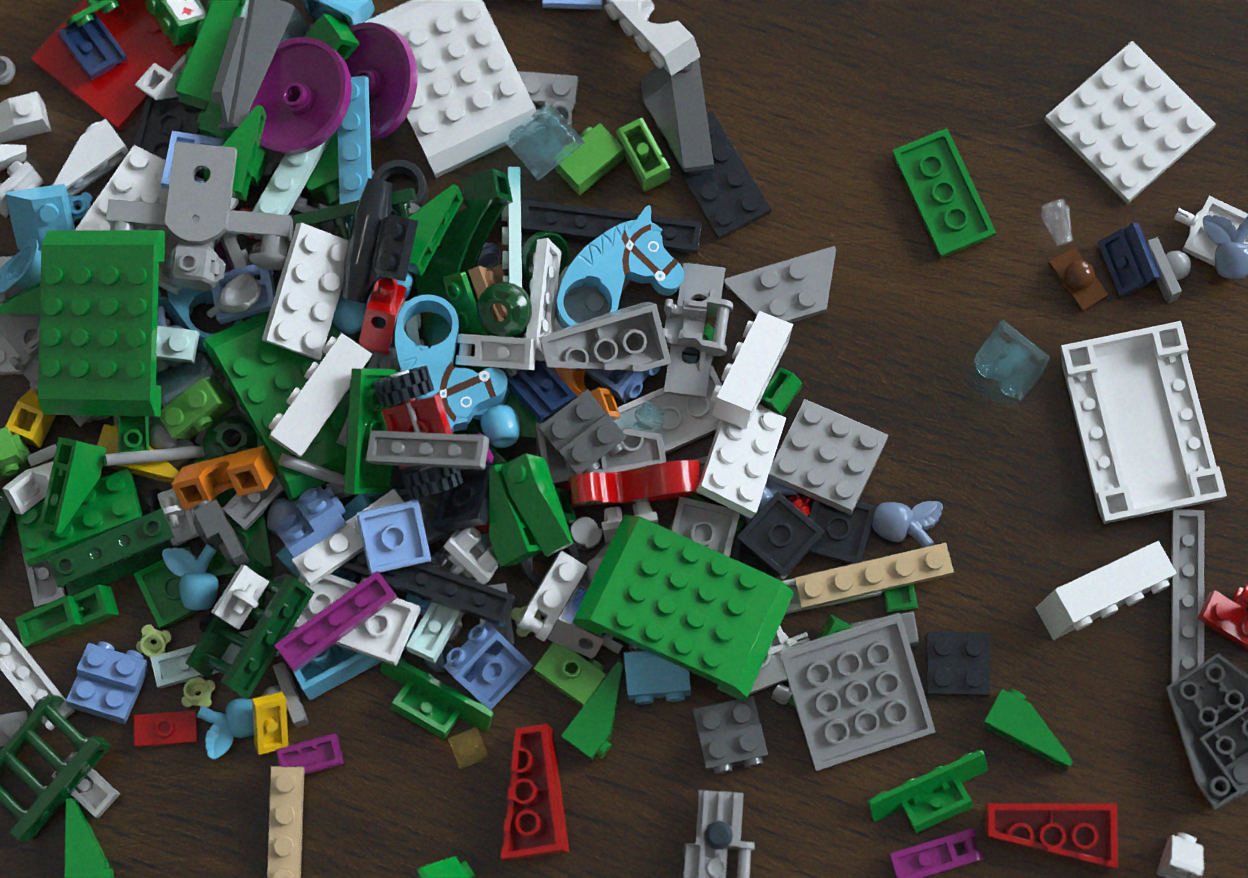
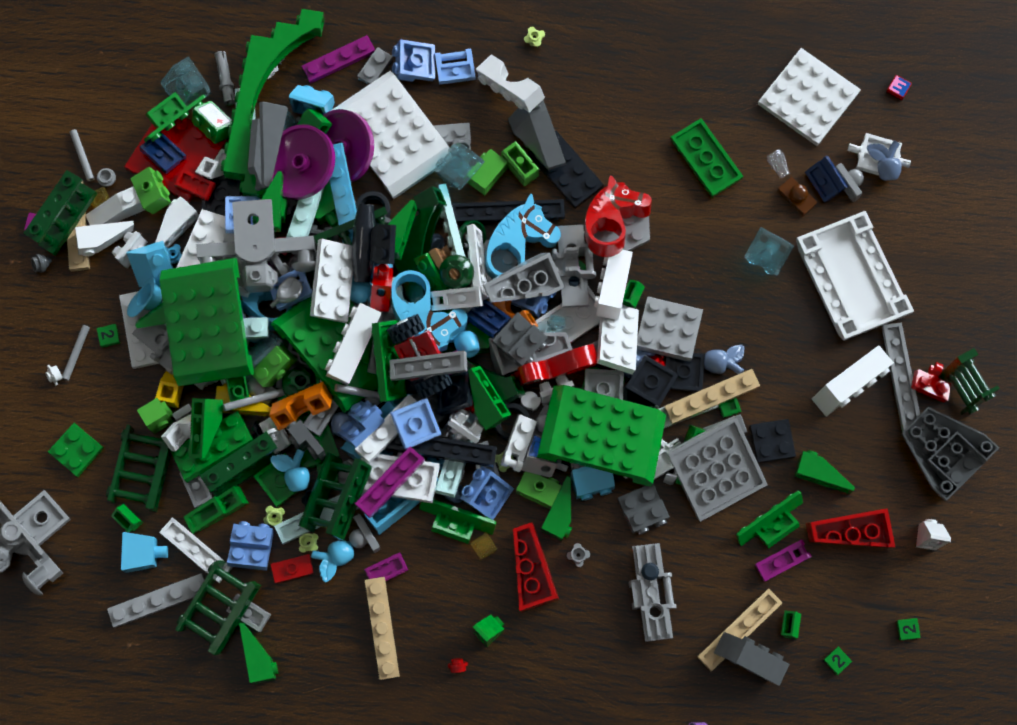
camera: 20 degrees left, 0 degrees up
(62, 102) = (151, 190): none -> bright green brick
(131, 104) = (195, 184): none -> red plate
(240, 597) = (326, 477): white hips -> none
(270, 722) = (358, 552): yellow plate -> none
(538, 502) = (502, 386): green slope -> none
(604, 788) = (573, 555): none -> light grey plate
(763, 253) = (607, 212): none -> red animal

